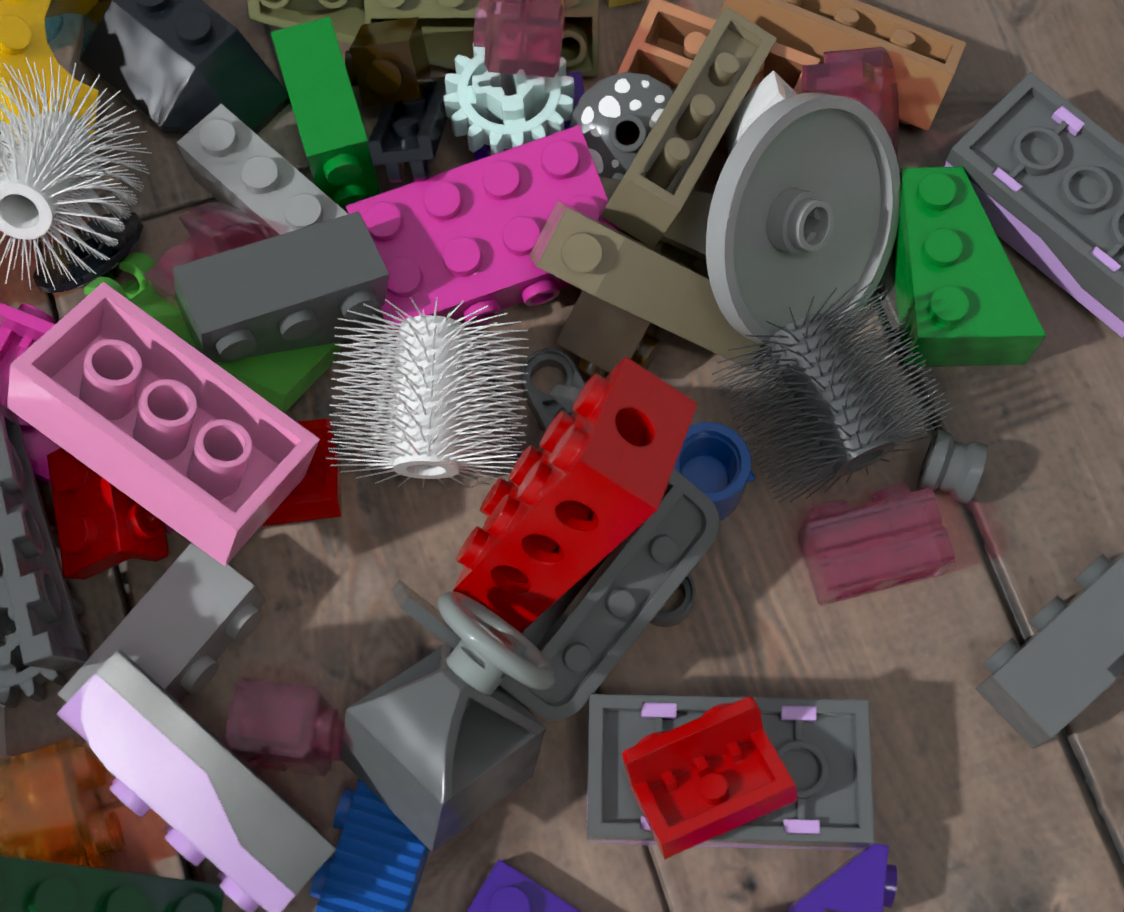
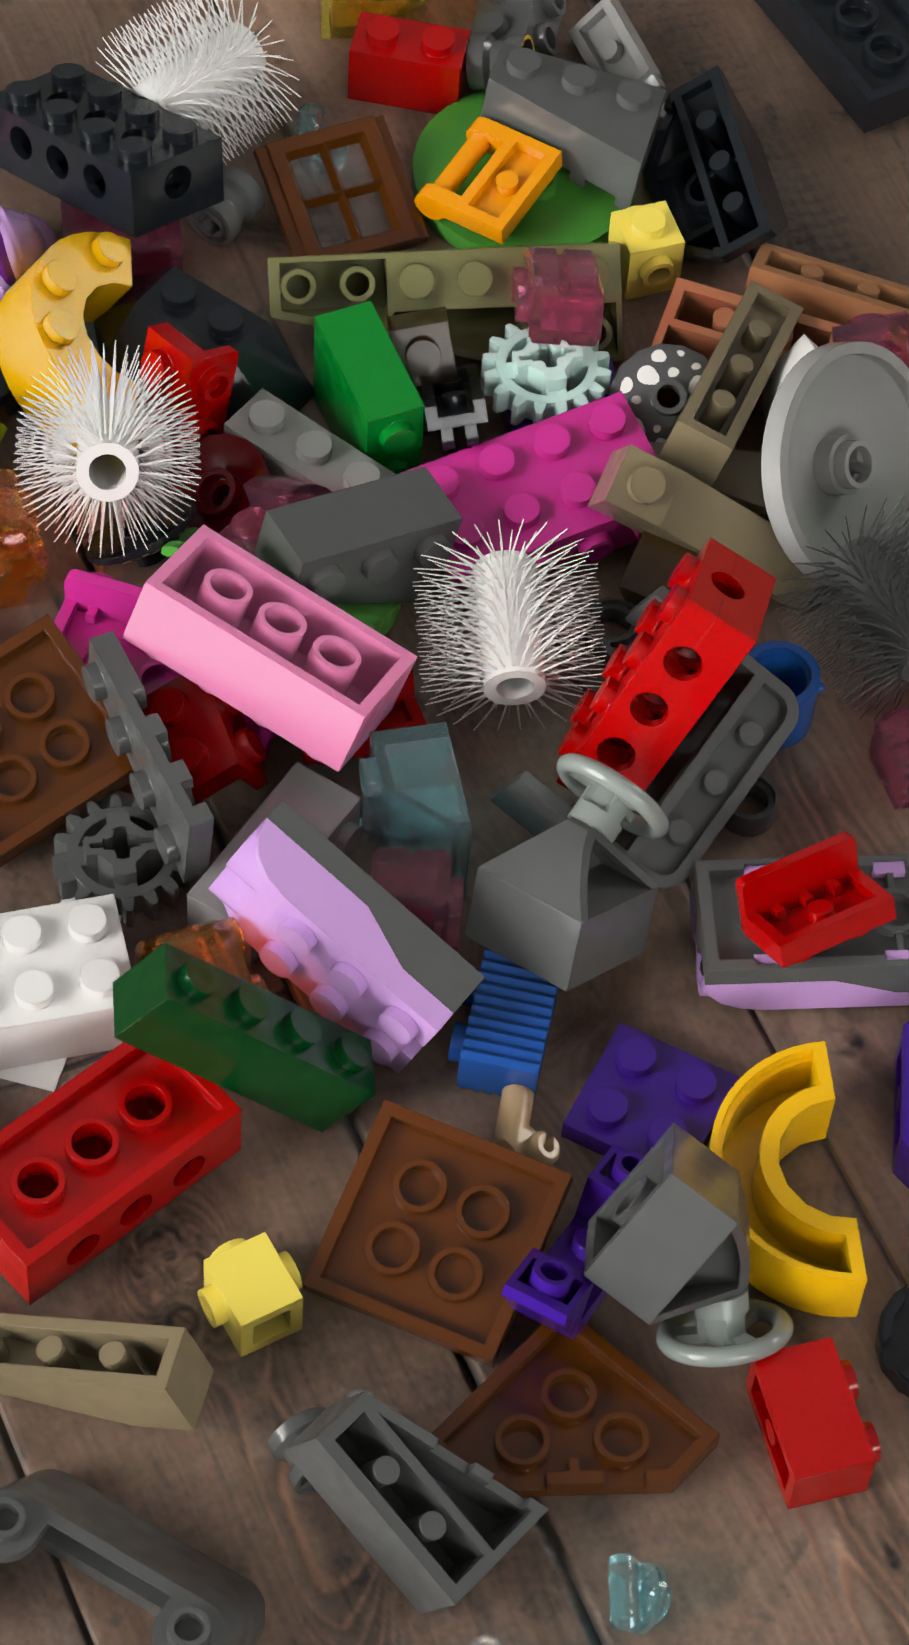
camera: 10 degrees left, 15 degrees down
(157, 94) = (205, 373): none -> red bracket
(168, 191) = (225, 467): none -> dark red dish
(311, 592) = (416, 794): none -> clear light blue slope

